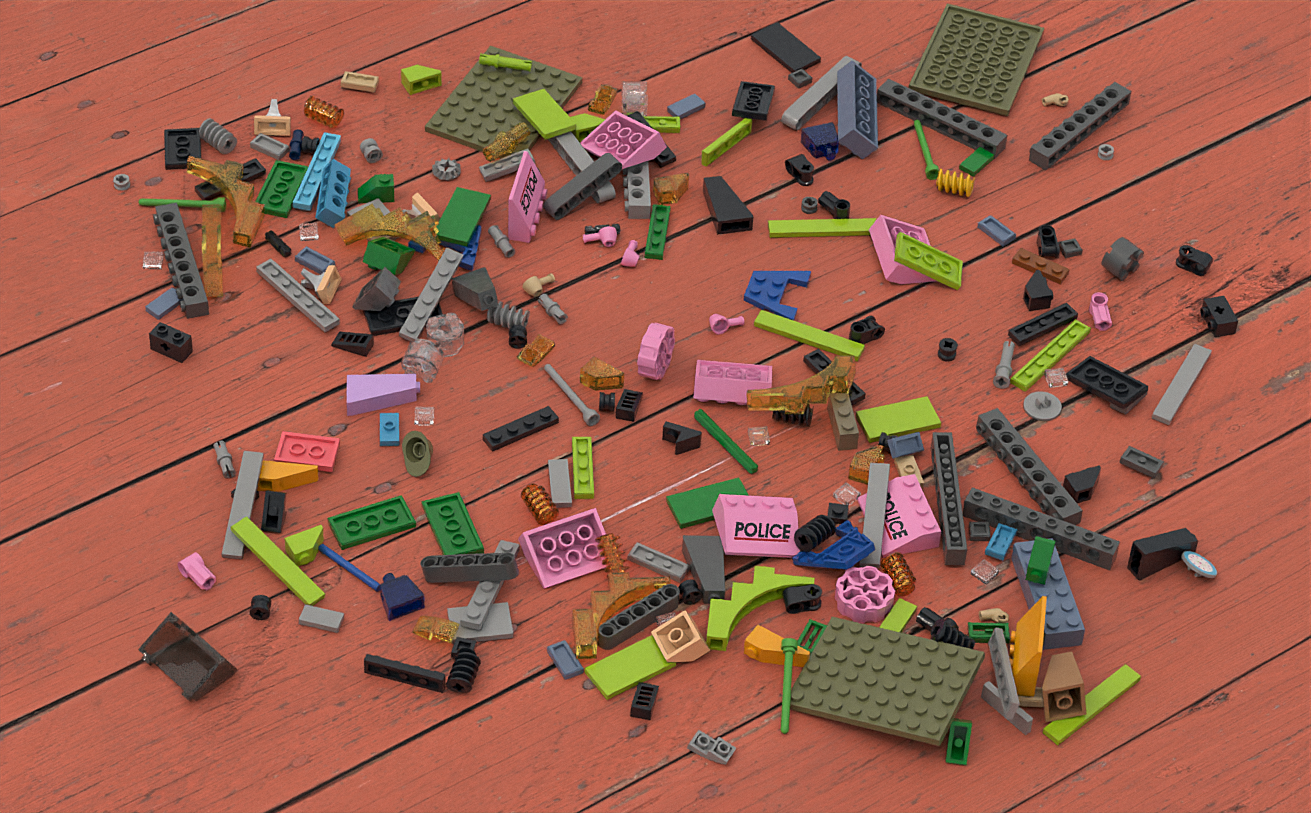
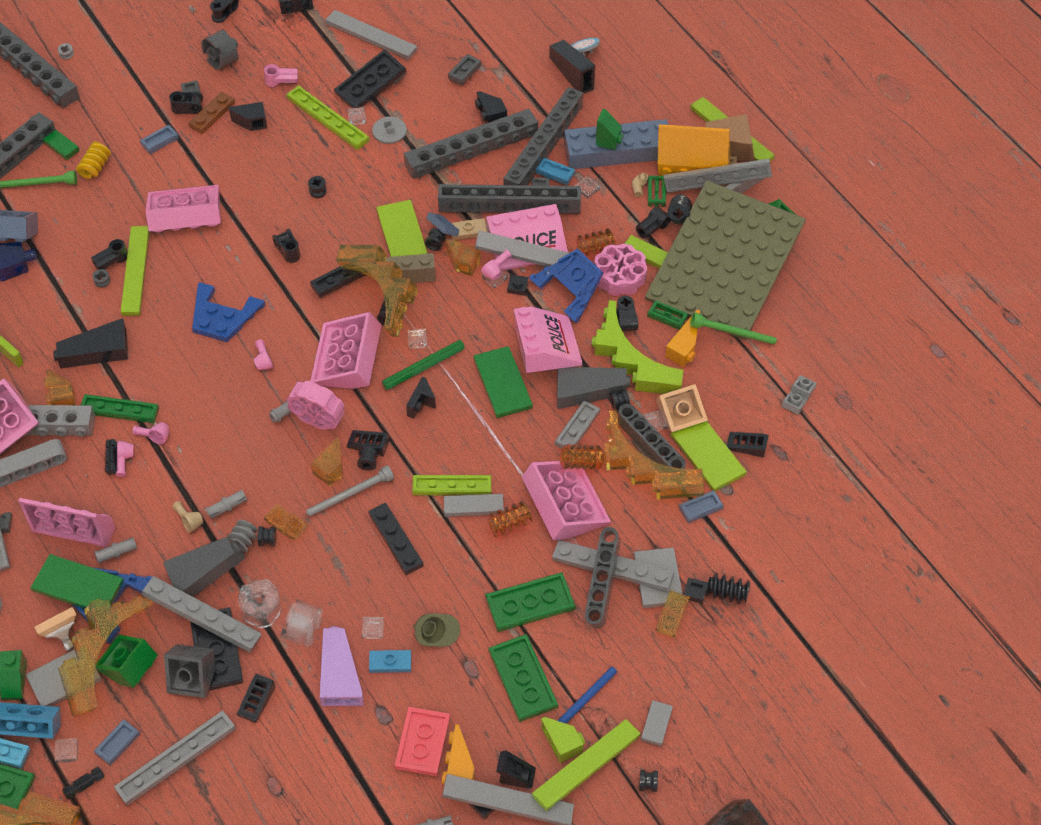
camera: 85 degrees left, 10 degrees up
(324, 284) = (161, 731): light nougat piece -> none
(400, 596) = (629, 647): clear blue torso -> none
(404, 673) = (731, 634): black plate -> none
(582, 186) = (53, 464): dark grey beam -> none
(800, 169) = (48, 280): black piece -> none
(808, 335) = (284, 291): lime tile -> none
(814, 533) = (552, 298): black piece -> none
(848, 484) = (492, 268): none -> bright pink bar
(928, 260) = (206, 185): lime tile -> none
(1004, 370) = (347, 149): light grey pin -> none
(1042, 324) = (291, 117): black plate -> none

